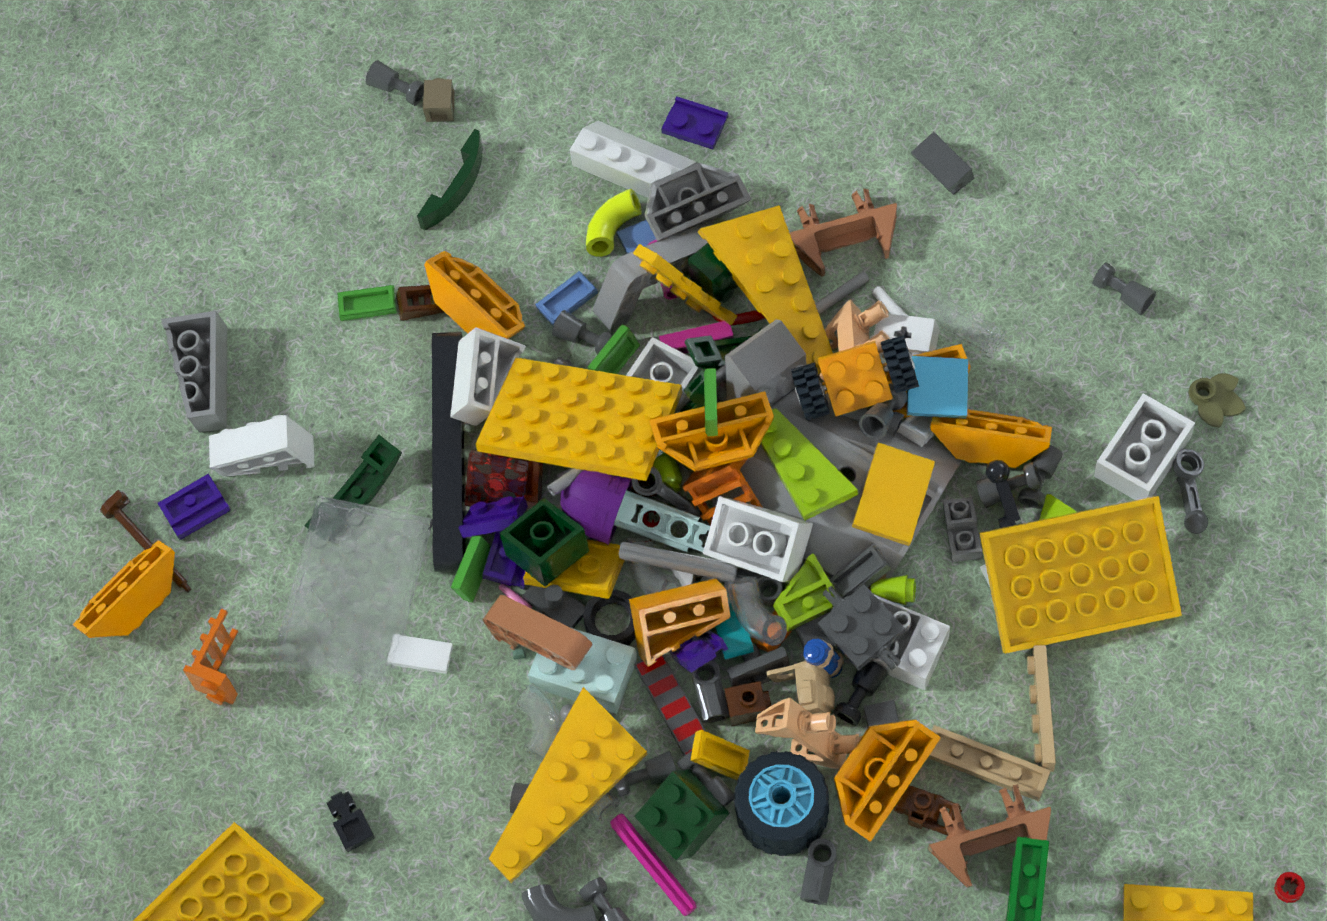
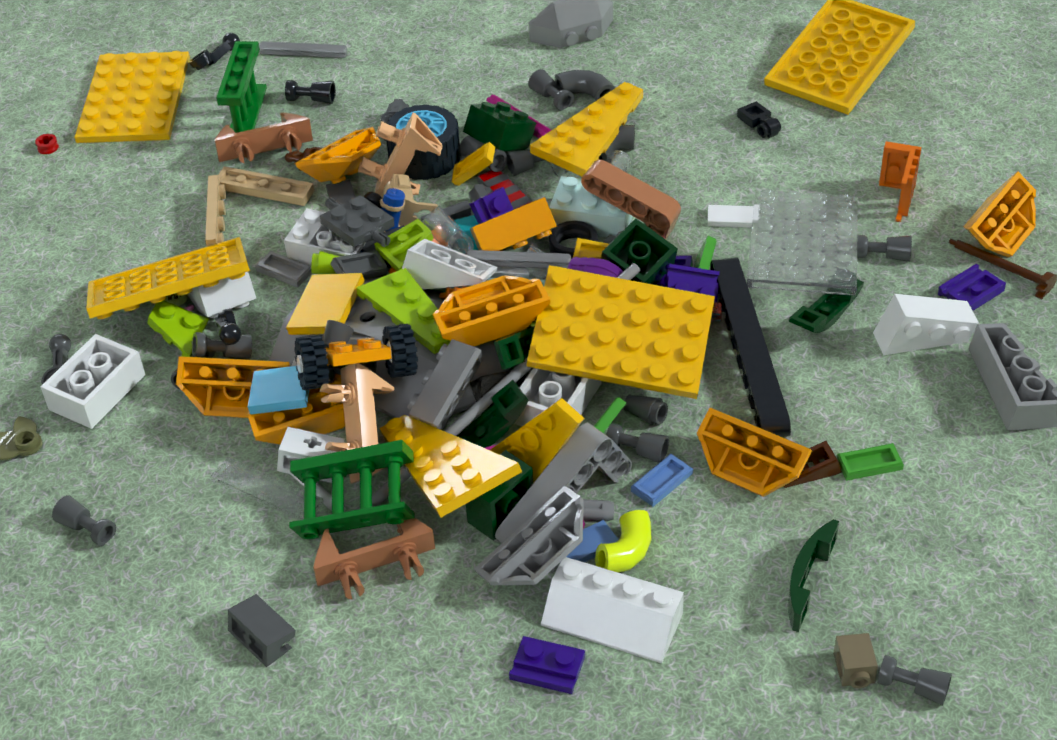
camera: 170 degrees right, 20 degrees down
(256, 572) = (894, 247): none -> dark grey piece
(480, 373) = (727, 376): white wedge -> none
(710, 396) = (491, 303): bright green tile -> none
(746, 702) = (453, 194): reddish brown brick -> none
(855, 291) = (338, 466): none -> green fence
(962, 529) = (268, 324): light grey slope -> none
(963, 626) = (284, 269): none -> light grey tile

